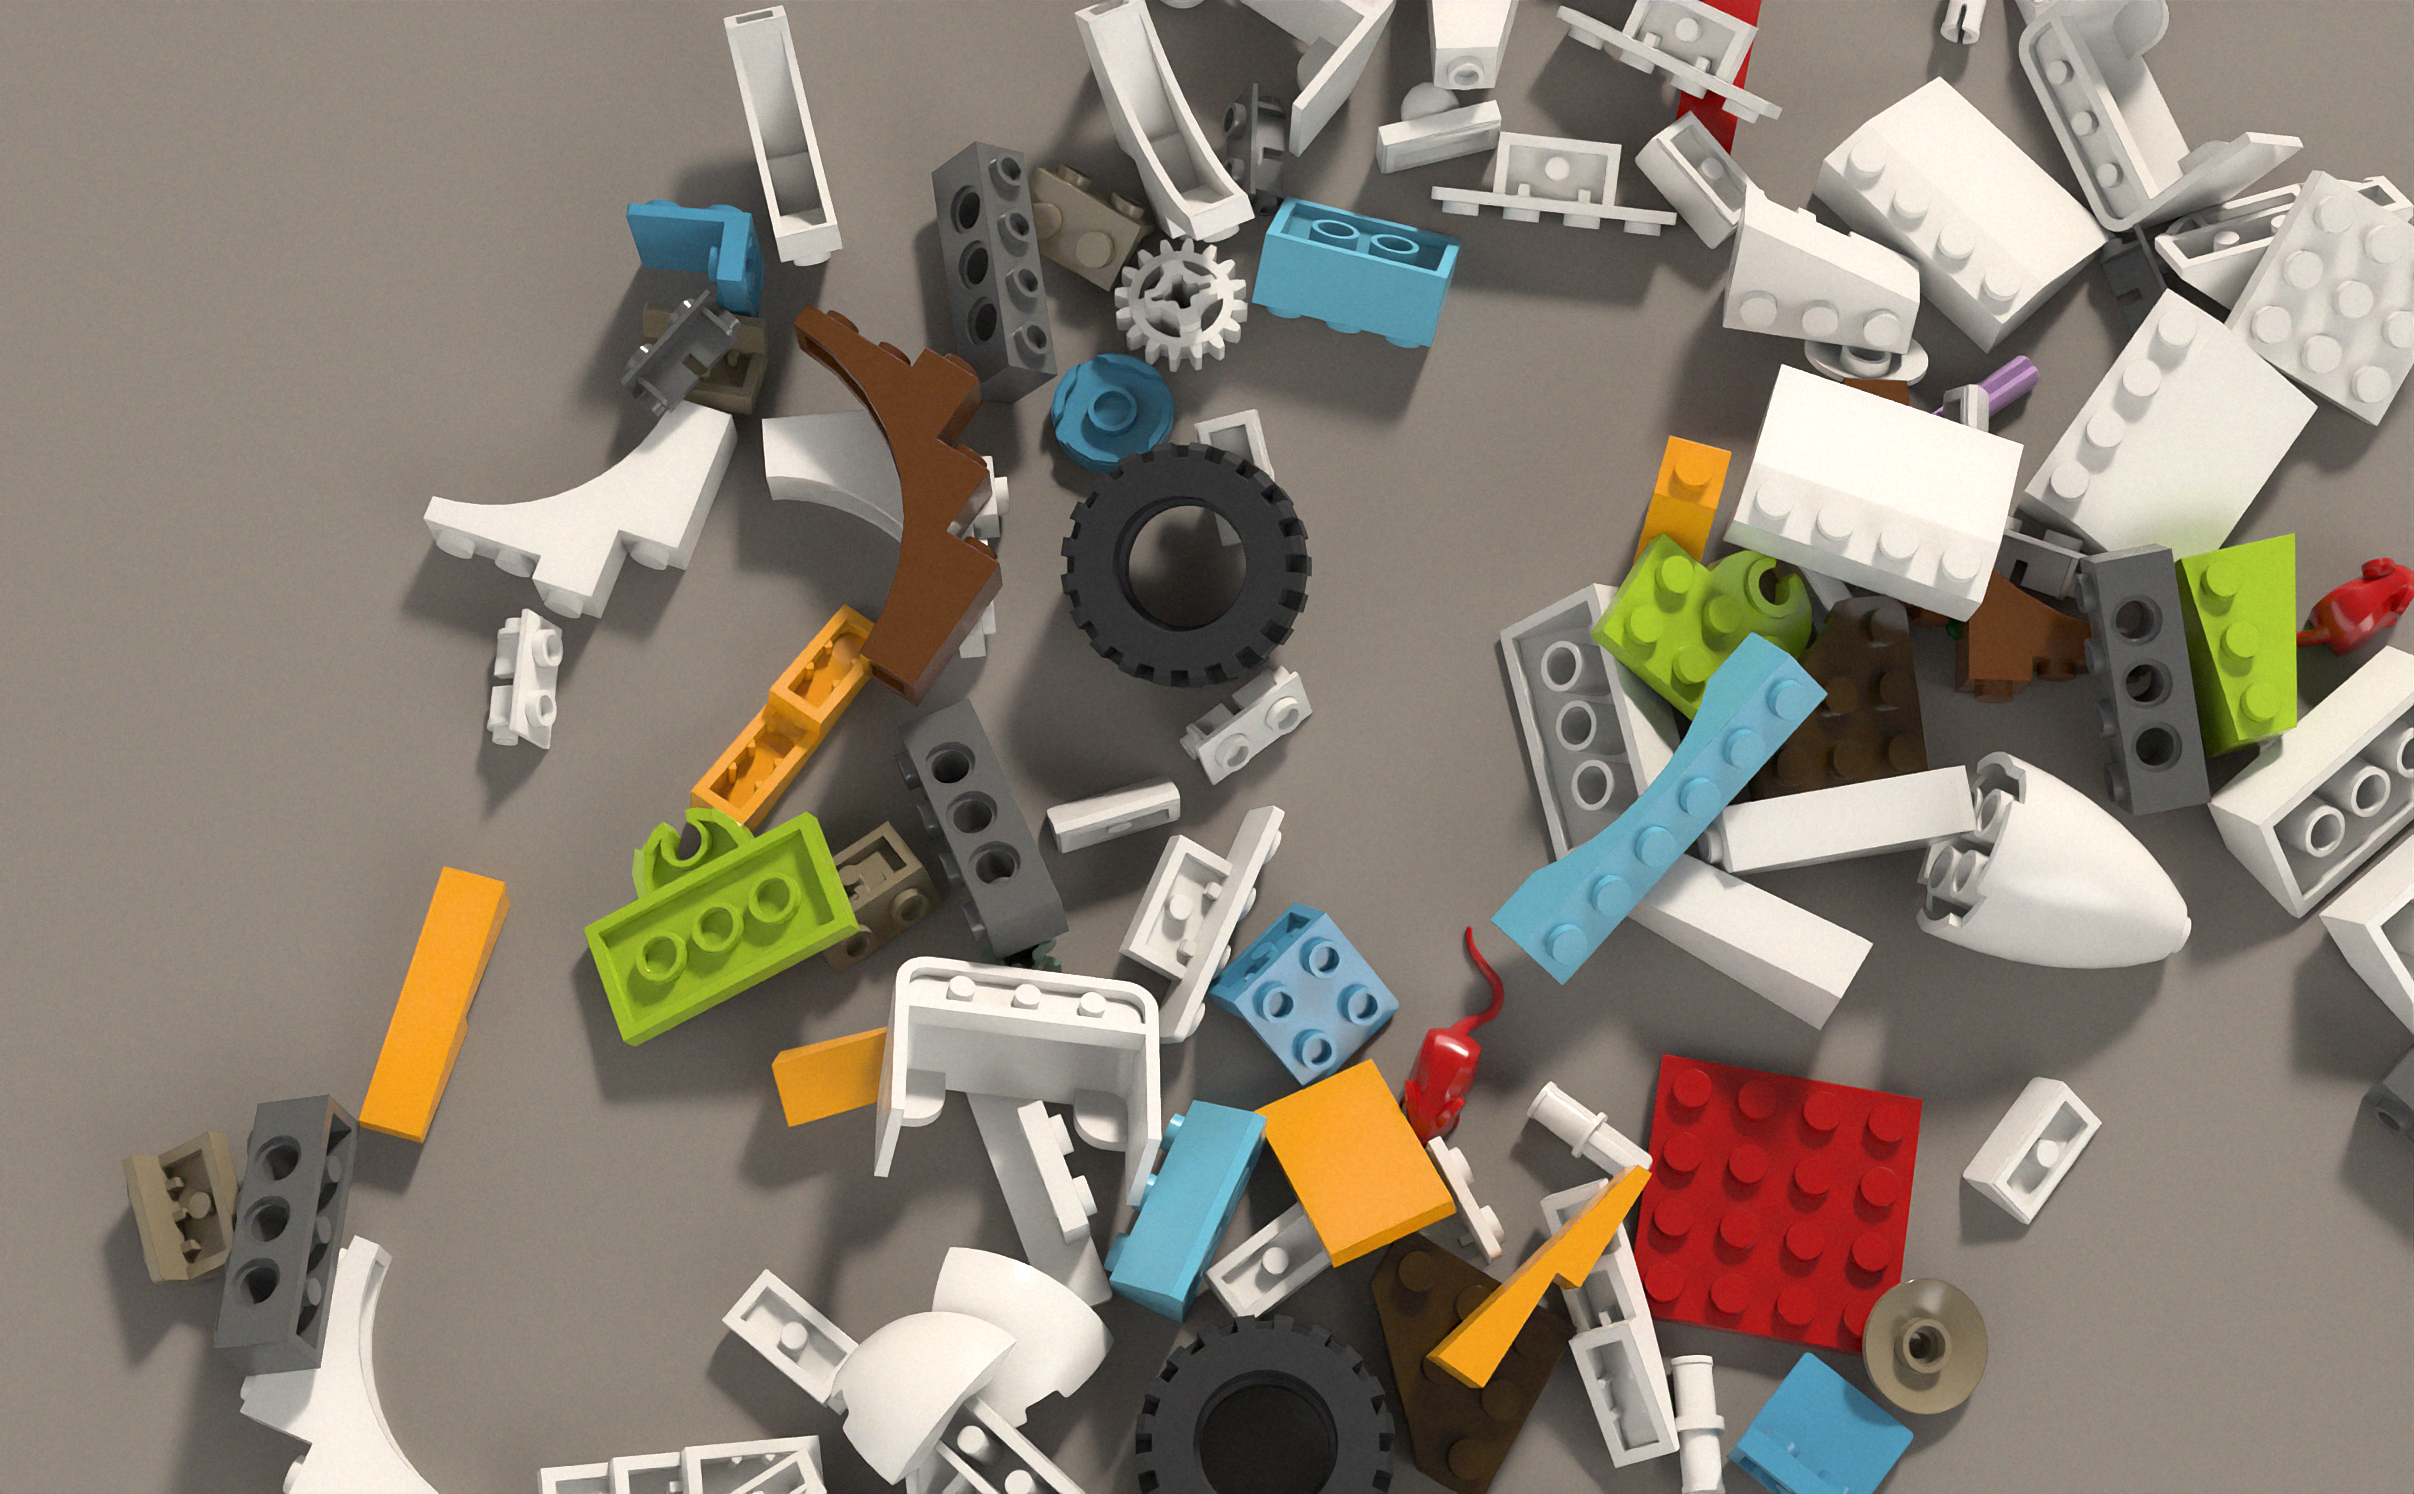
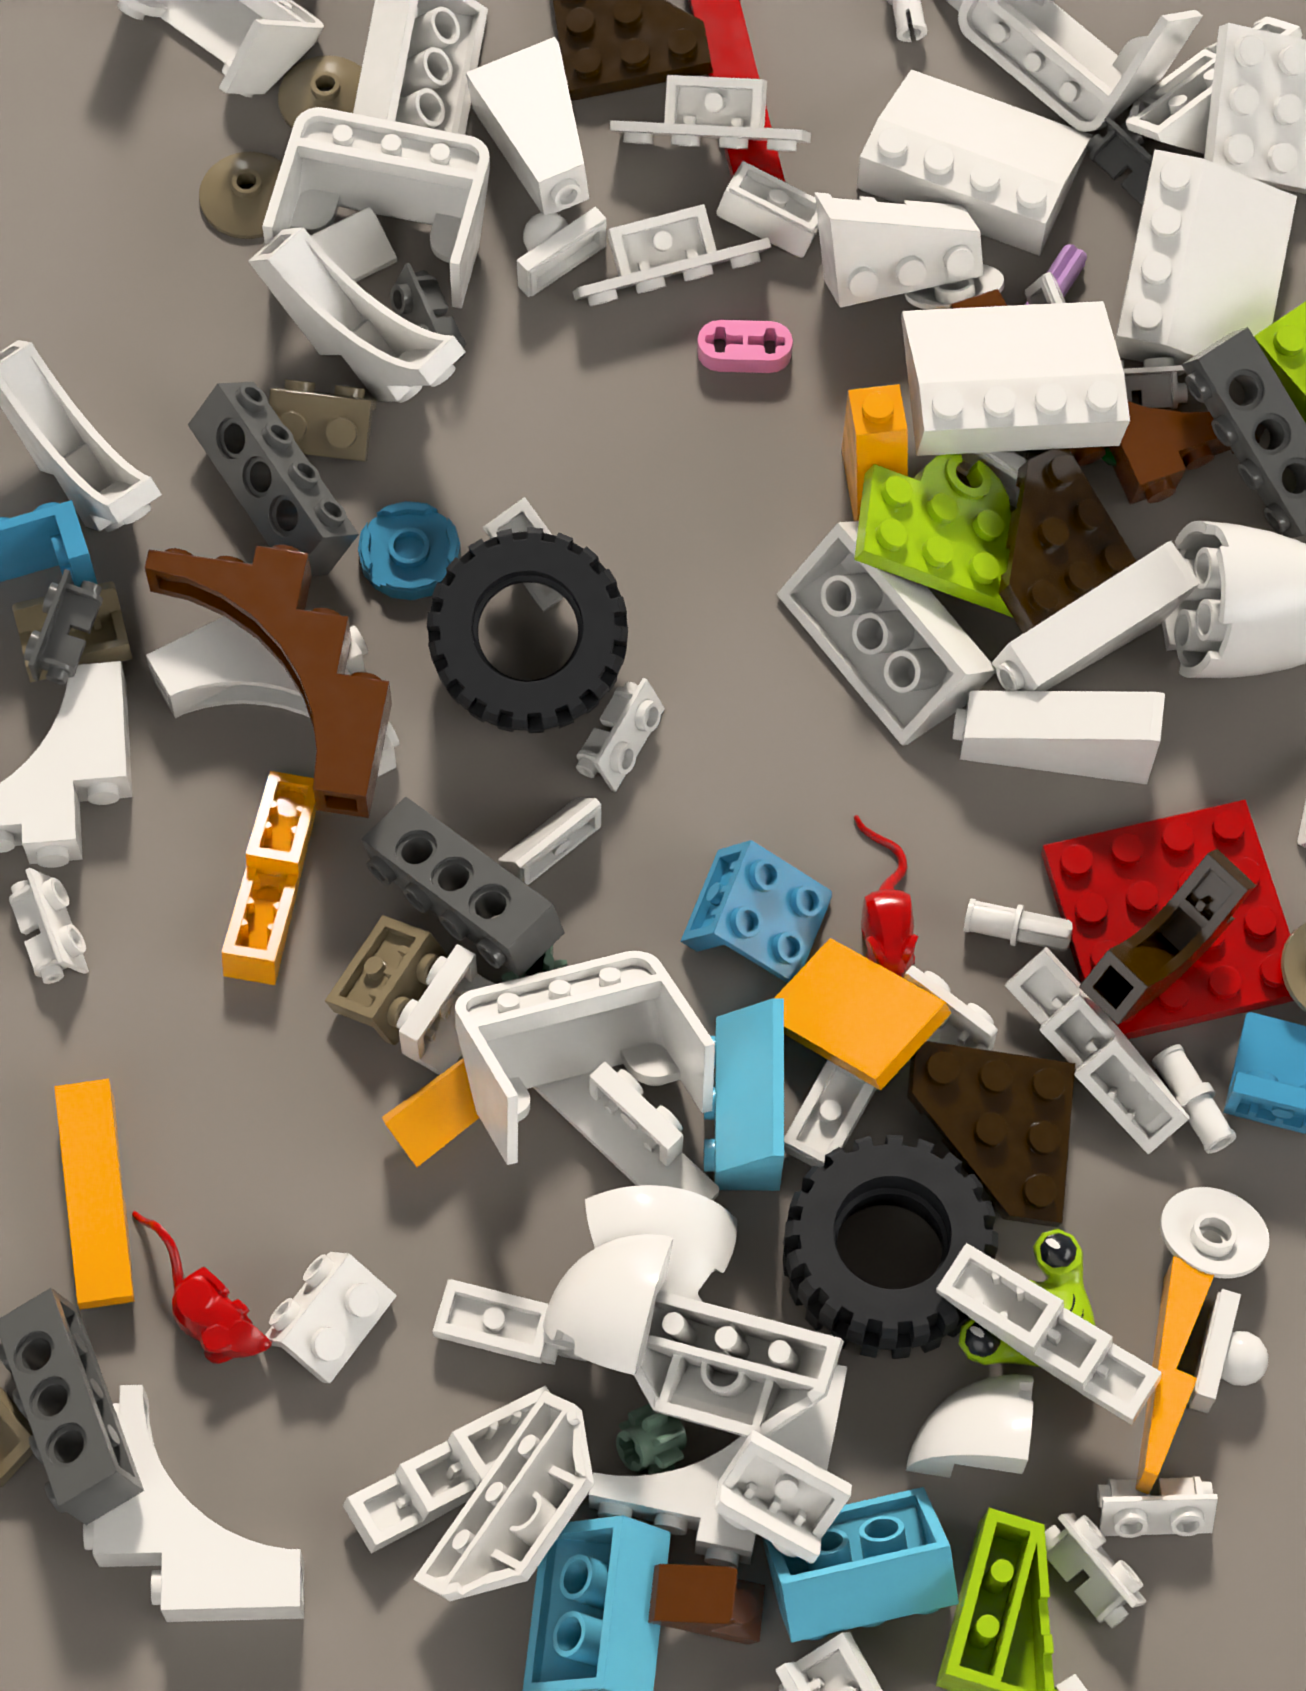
camera: 25 degrees left, 5 degrees down
(494, 1188) = (205, 1310): none -> red animal
(621, 1250) = (329, 1314): none -> white bracket
(716, 919) = (288, 1036): lime plate -> none
(871, 965) = (429, 1024): none -> white bracket
(1192, 913) = (648, 884): white bracket -> none
(1204, 292) = (425, 450): white gear -> none
(1206, 40) = (357, 245): none -> white slope
(1356, 272) = (548, 374): medium azure slope -> none
(1566, 1258) = (1048, 1012): light orange slope -> none
(1596, 328) = (744, 346): none -> bright pink beam
(1741, 723) = (933, 755): medium azure arch -> none
(1745, 1237) = (1171, 942): none -> dark brown arch

